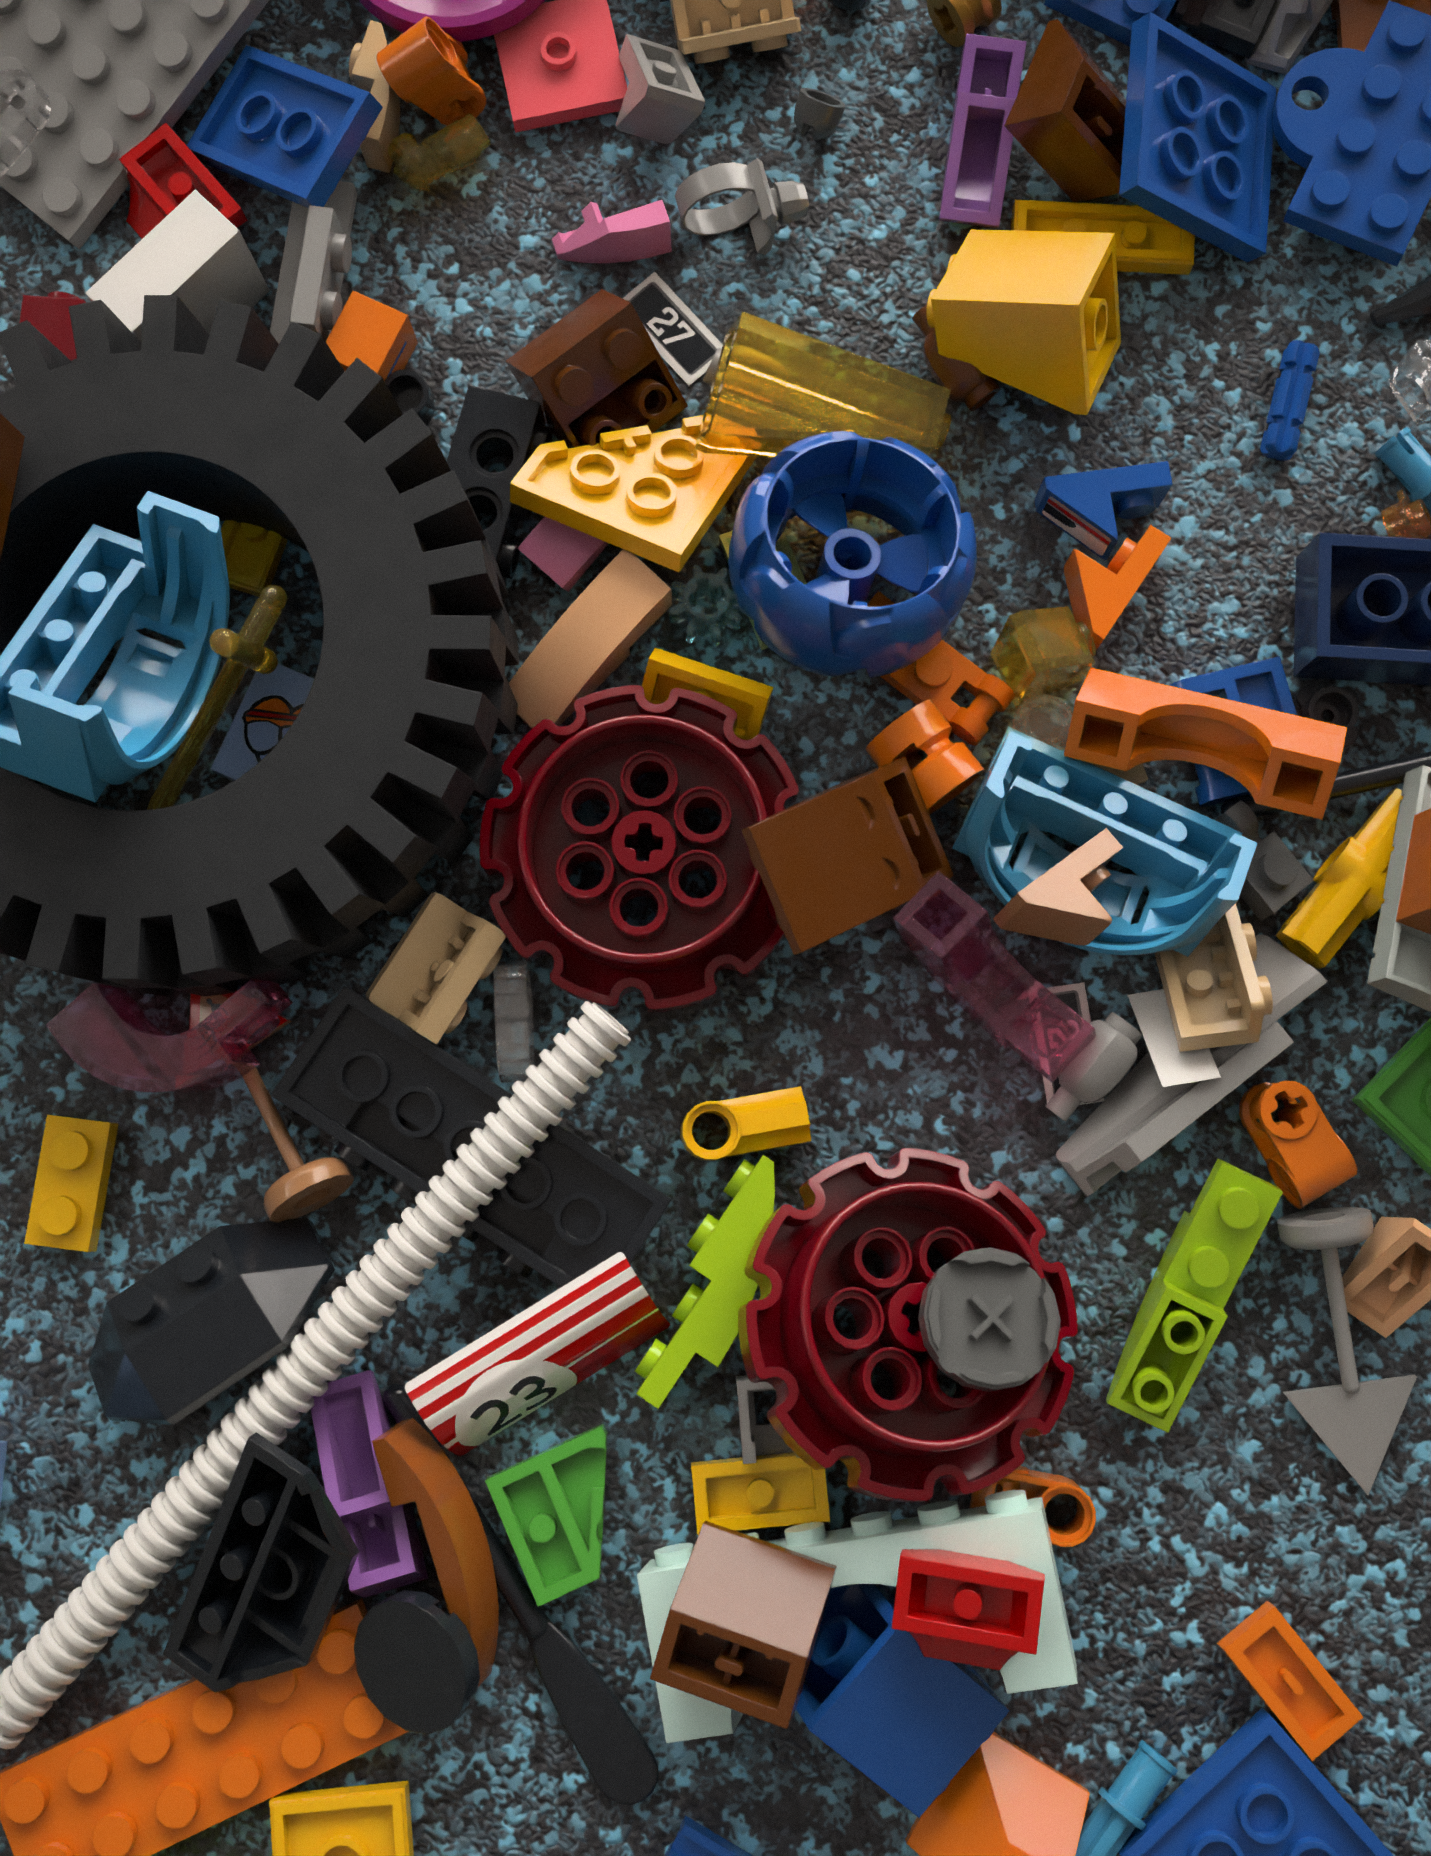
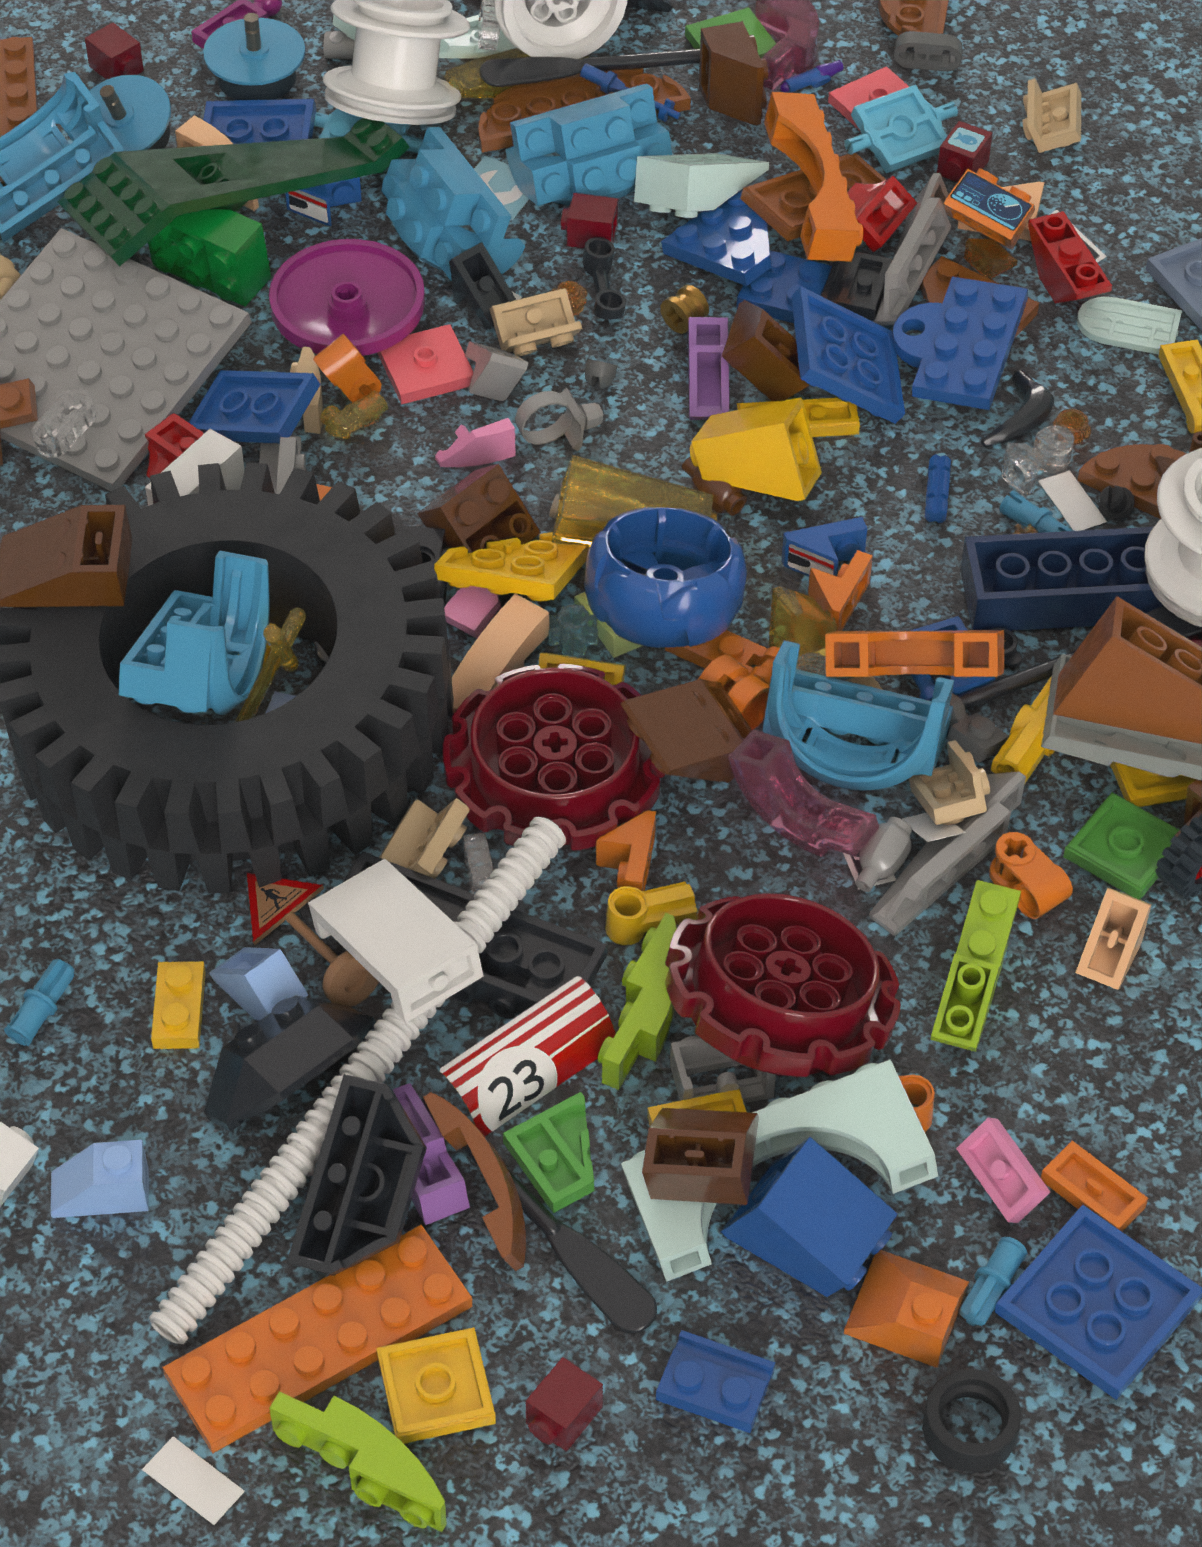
camera: 10 degrees left, 30 degrees down
(123, 1048) = (243, 912): clear pink arch -> none
(179, 1174) = (258, 980): none -> light blue slope
(354, 1192) = (398, 938): none -> white panel
(416, 1662) = (473, 1228): black tile -> none
(674, 328) = (534, 498): sticker -> none
(740, 1012) = (629, 850): none -> orange slope
(968, 1606) = (850, 1114): red slope -> none
(989, 1320) = (832, 952): dark grey tile -> none
(1061, 900) = (838, 744): slope -> none
(1169, 1636) = (1003, 1170): none -> bright pink plate
(1355, 1416) = (1105, 1035): light grey piece -> none

